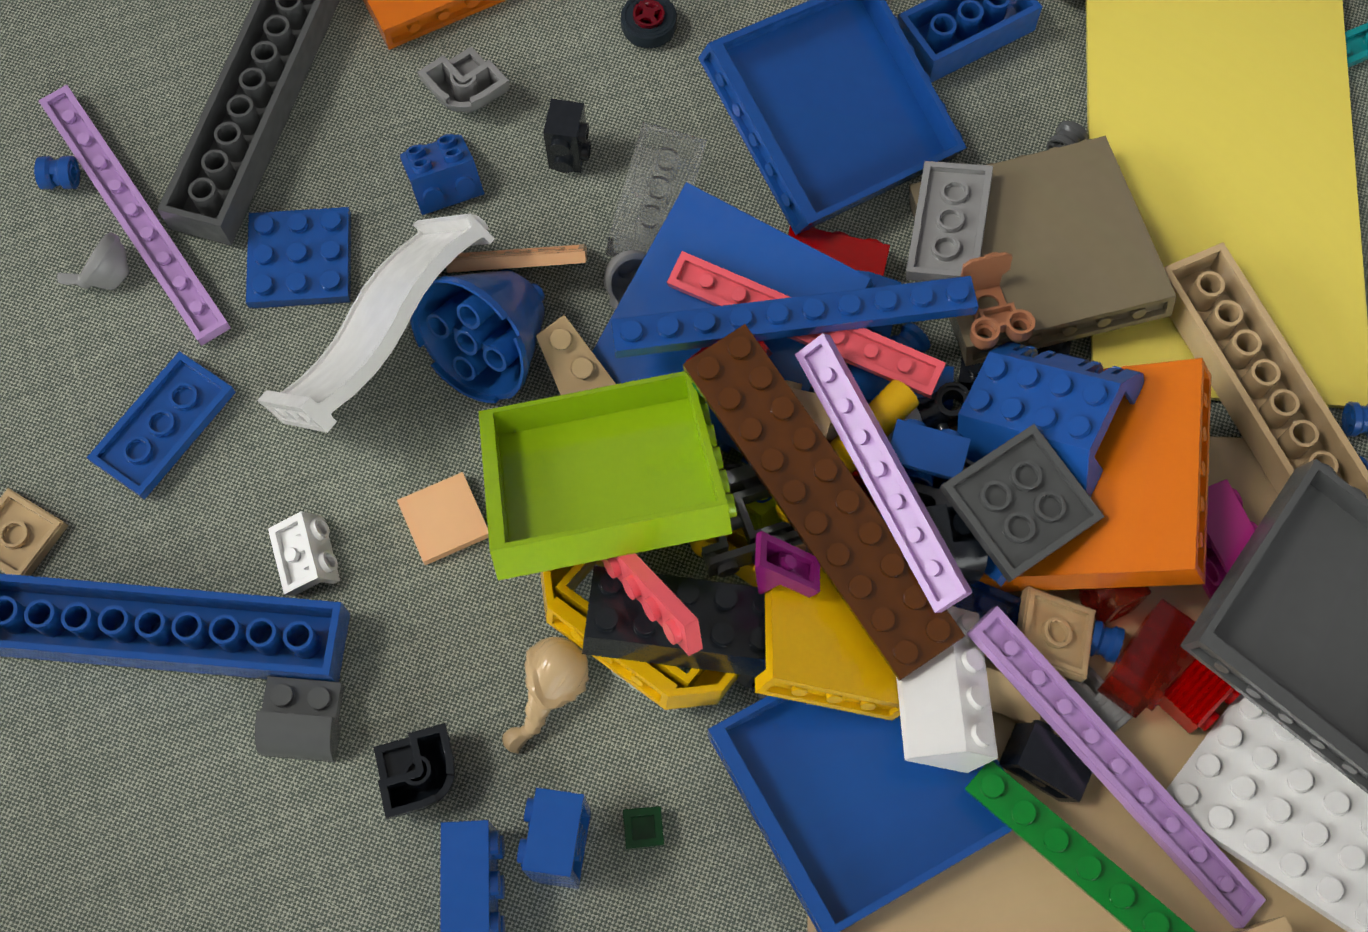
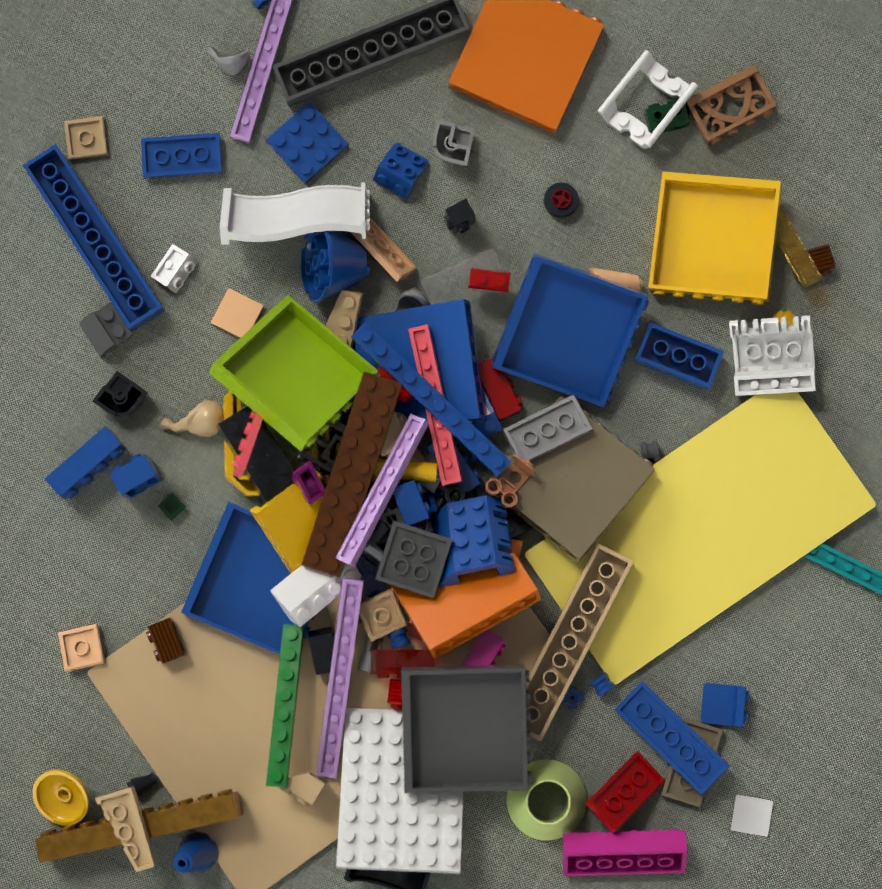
camera: 55 degrees right, 15 degrees up
(684, 148) = (489, 280): none -> red brick

